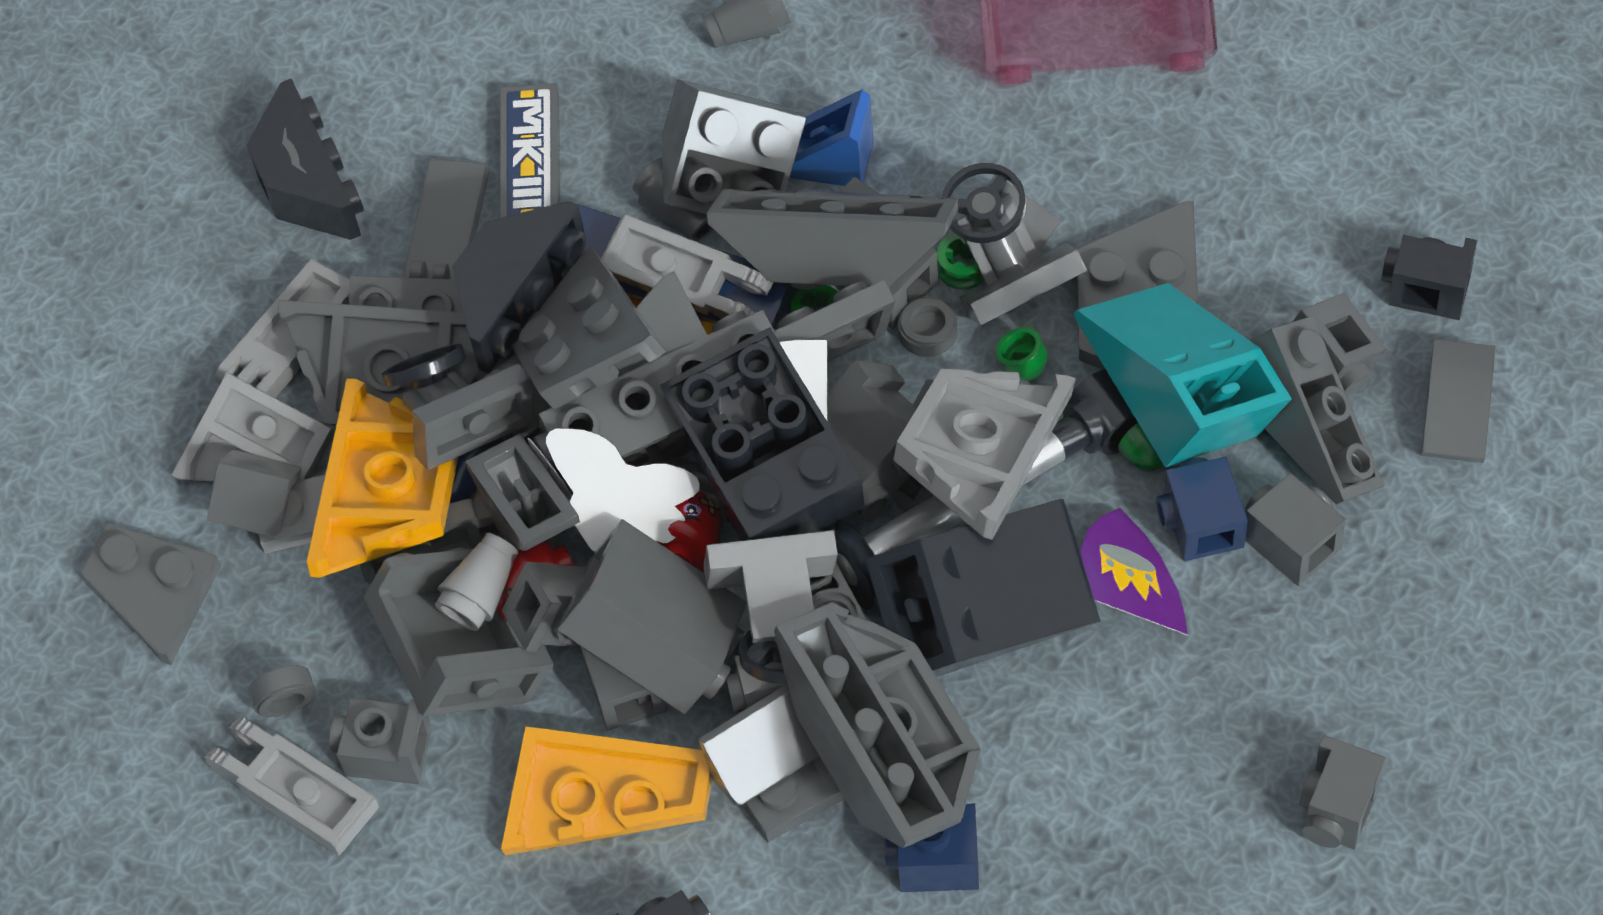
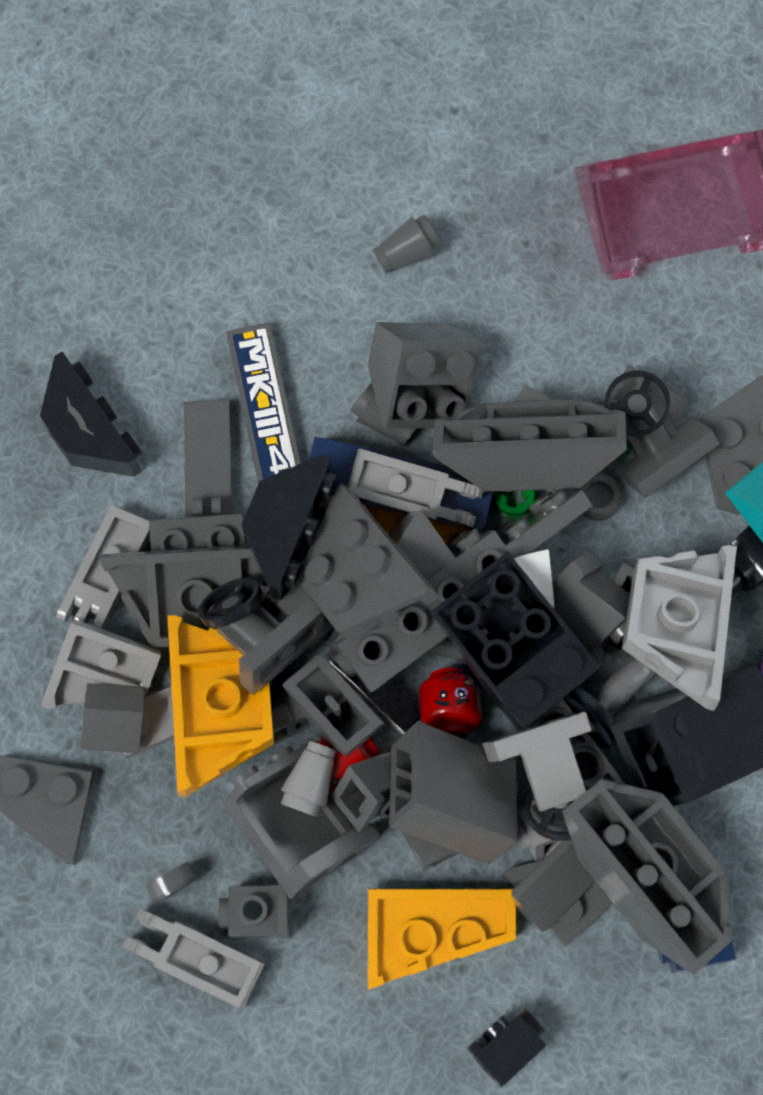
camera: 15 degrees left, 15 degrees up
(614, 491) = (406, 697): white sticker -> none
(836, 142) = (502, 349): blue slope -> none
(1027, 348) = (679, 506): green hinge -> none

